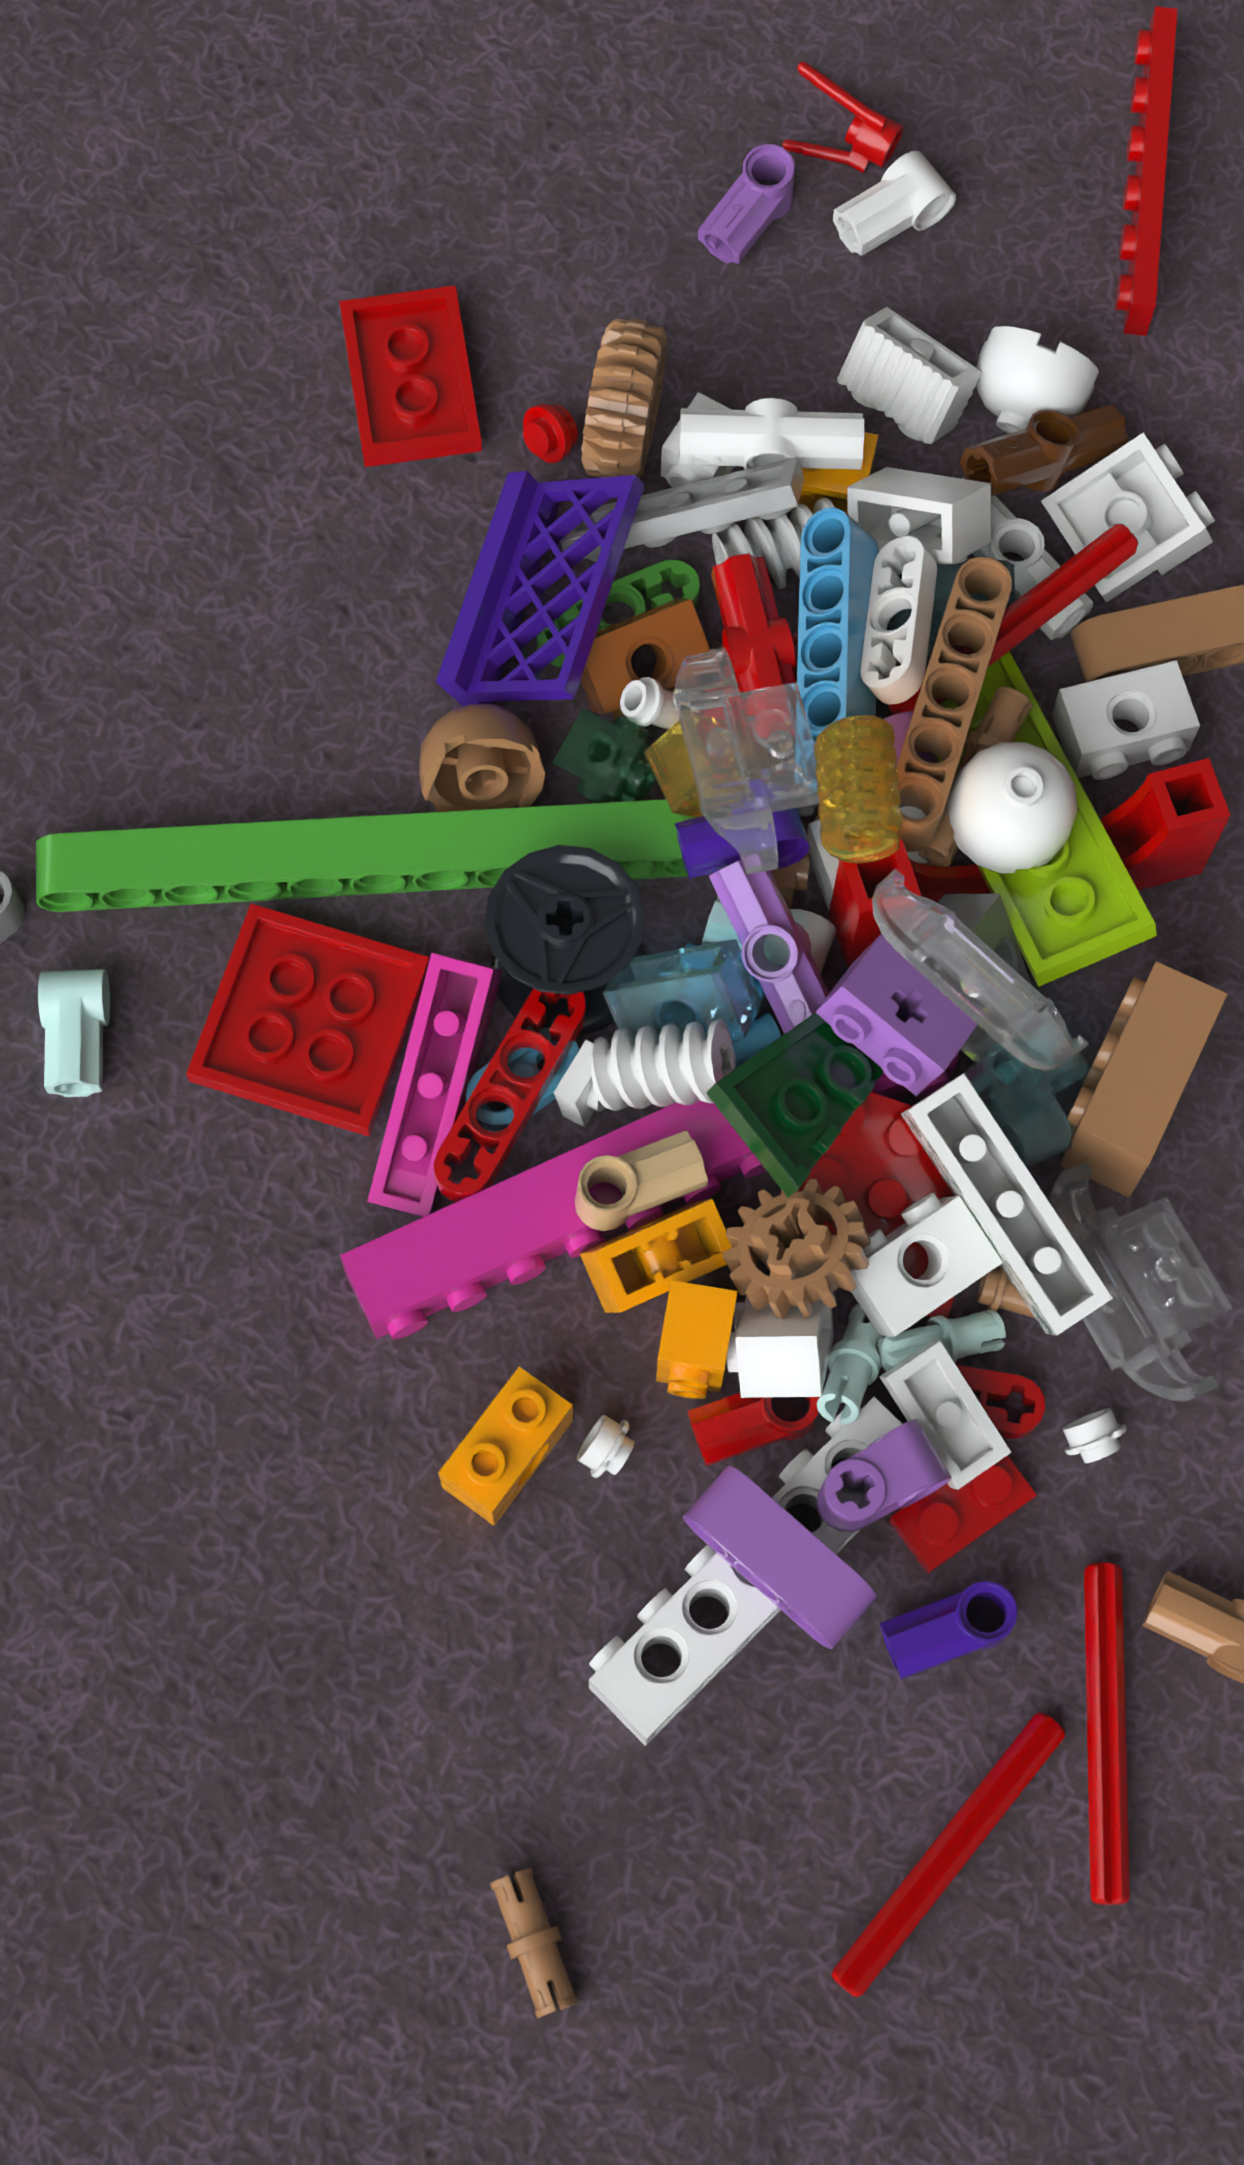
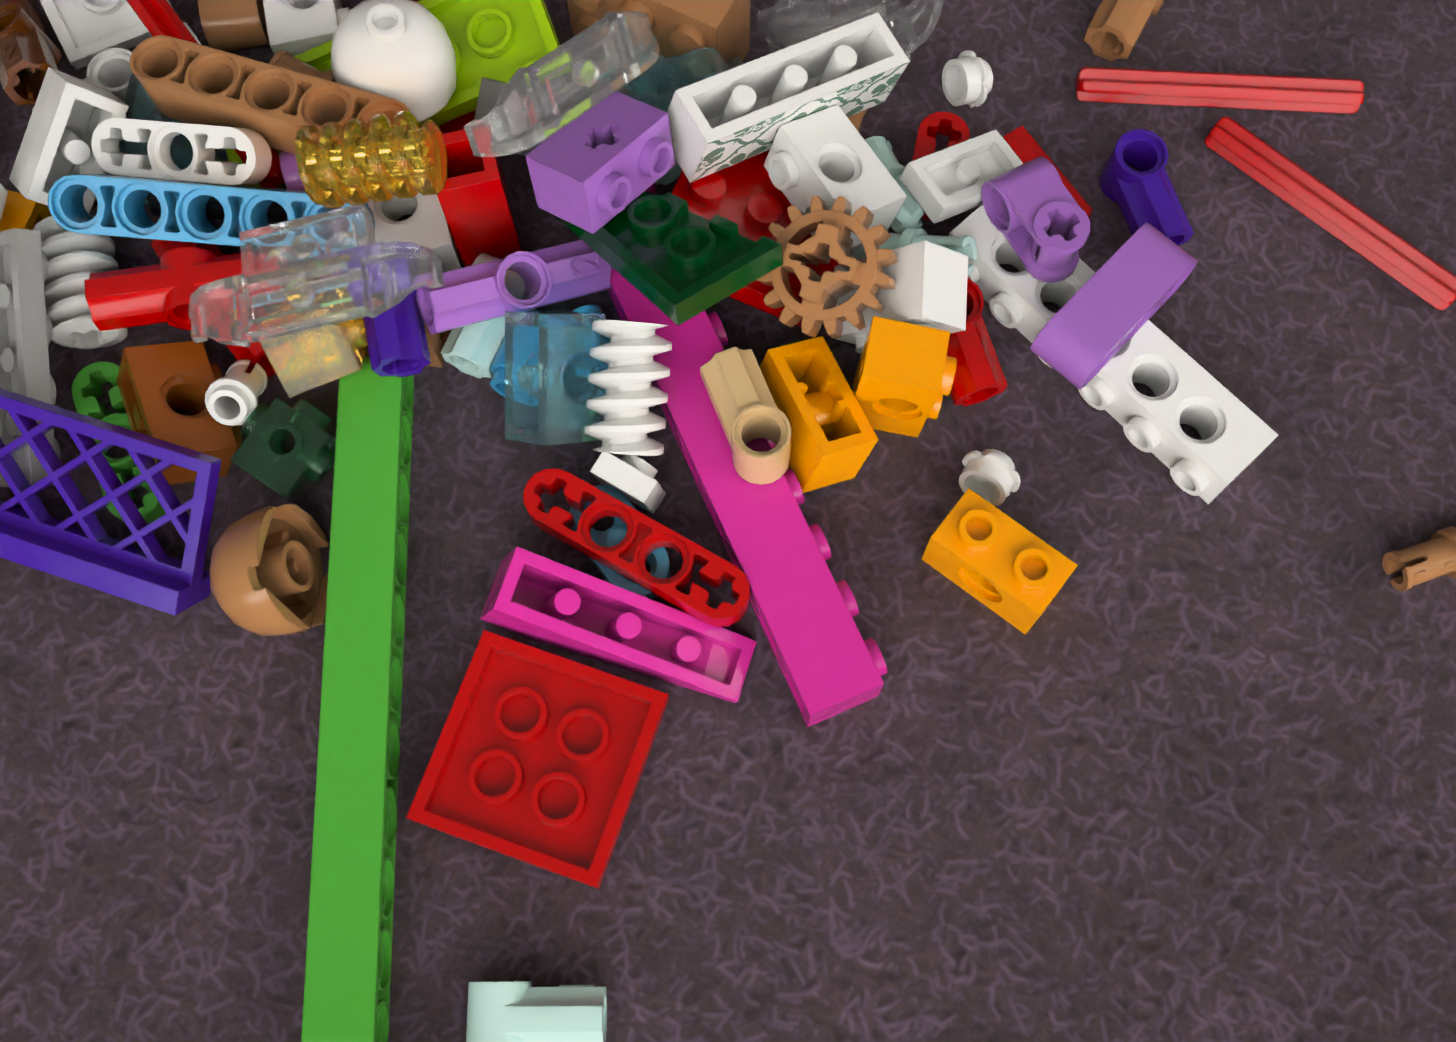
camera: 85 degrees left, 0 degrees up
(564, 927) = (474, 479): black piece -> none

